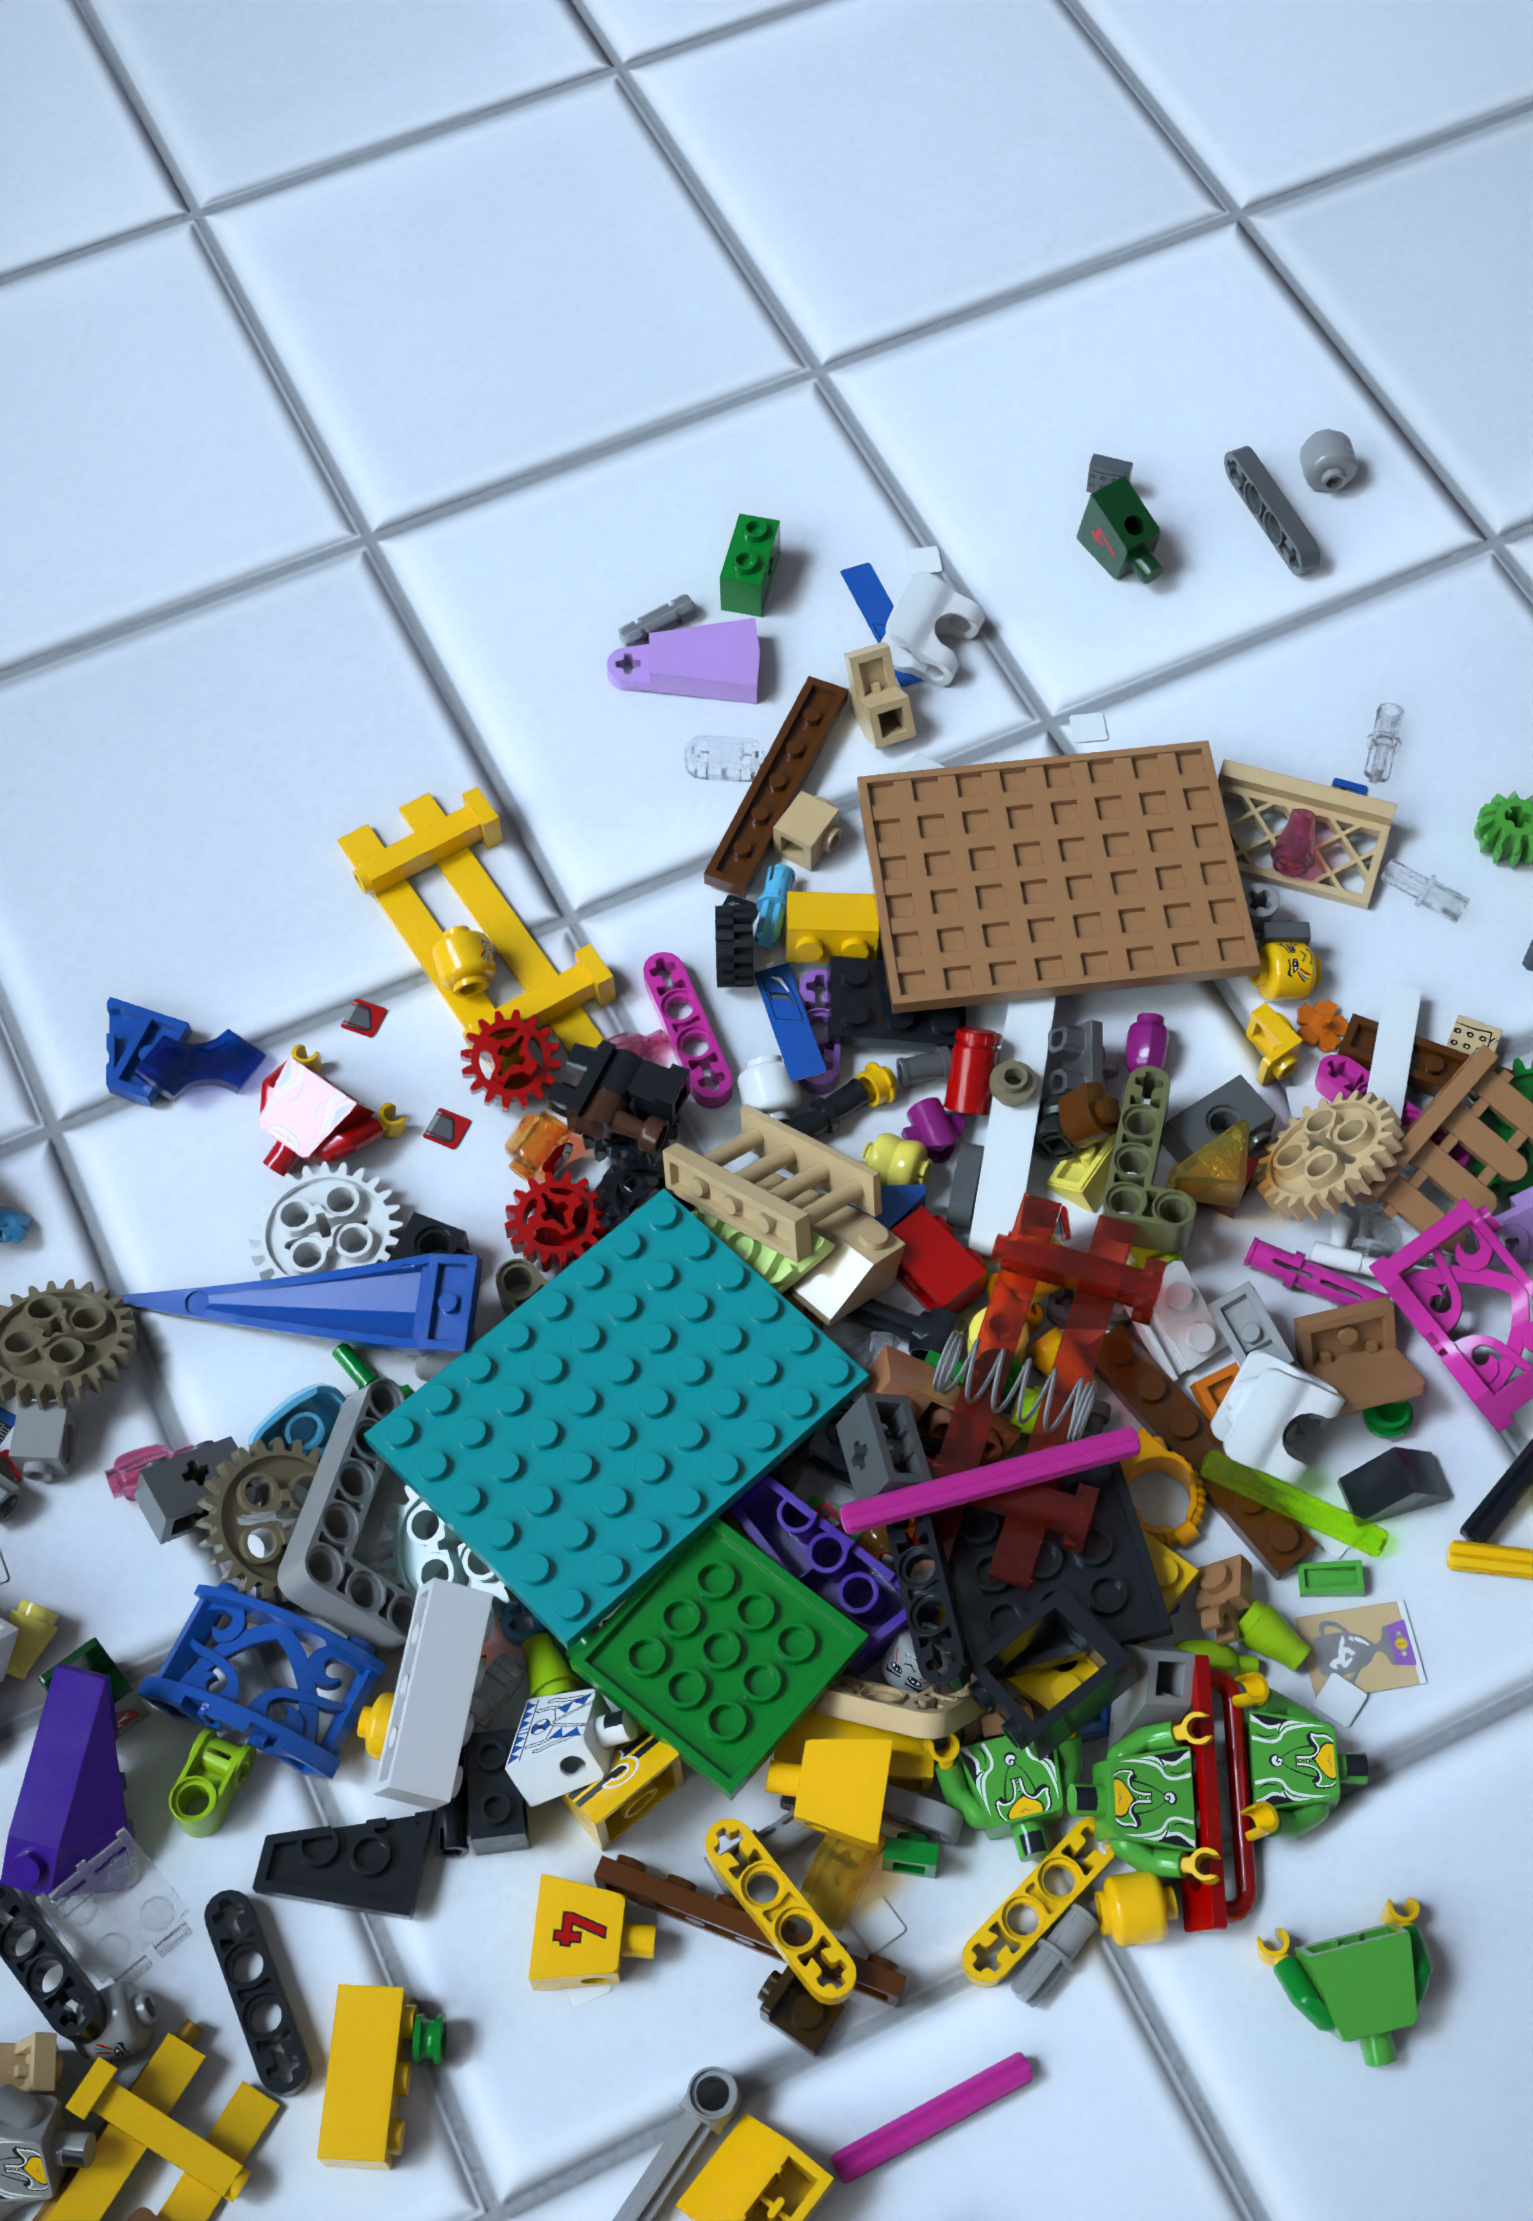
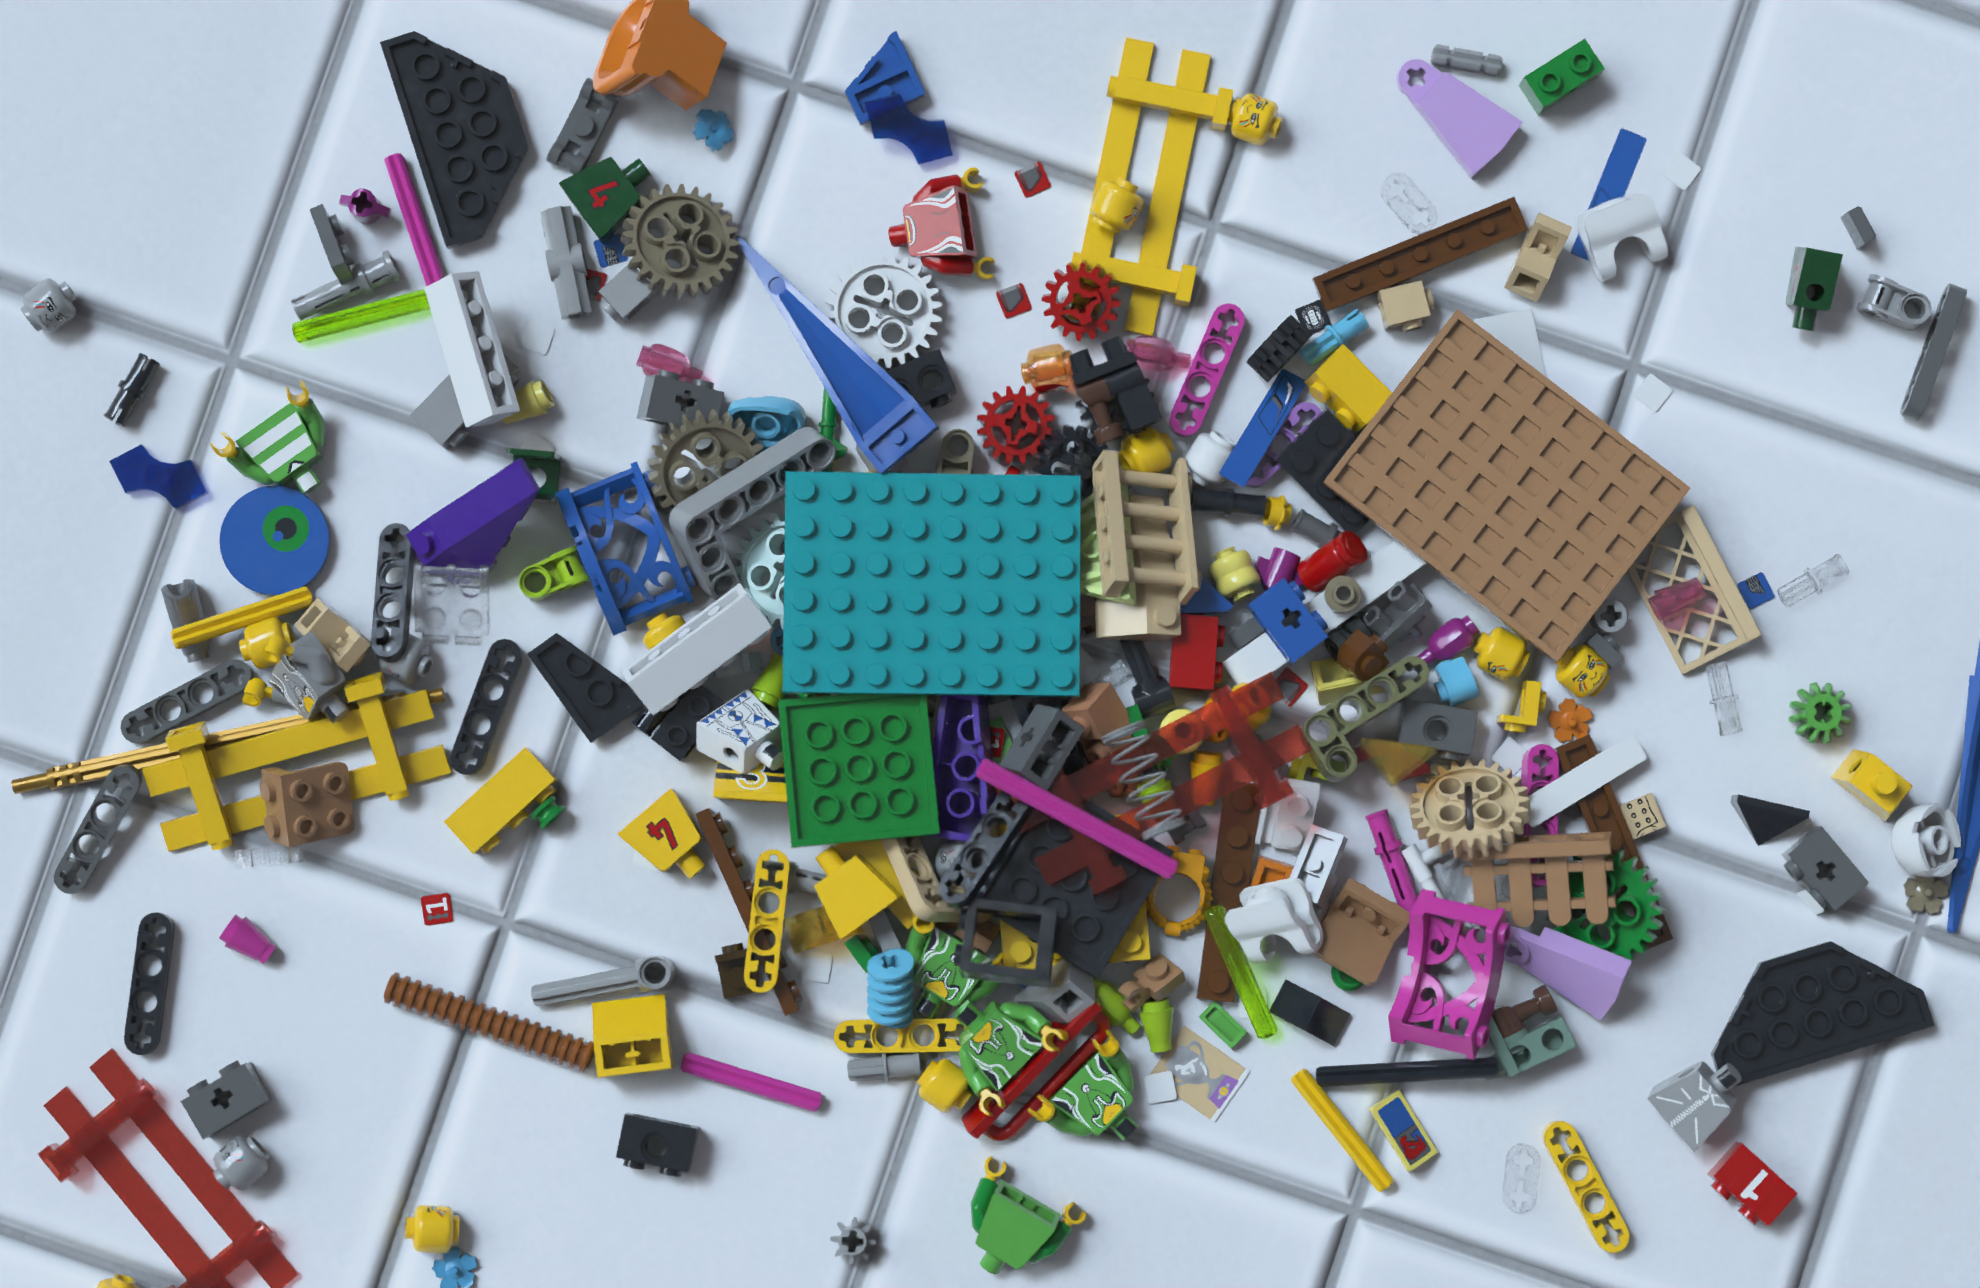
camera: 40 degrees right, 25 degrees up
(520, 800) = (1254, 119): none -> yellow head
(705, 1128) = (1146, 451): none -> yellow head
(978, 1853) = (891, 988): none -> medium azure piece
(1006, 1162) = (1268, 613): none -> blue brick
(1193, 1072) = (1455, 682): none -> medium azure plate
(1203, 503) = (1892, 301): none -> light grey piece
(1203, 1018) = (1501, 653): none -> yellow head
(1231, 2185) = (844, 1246): none -> light grey gear

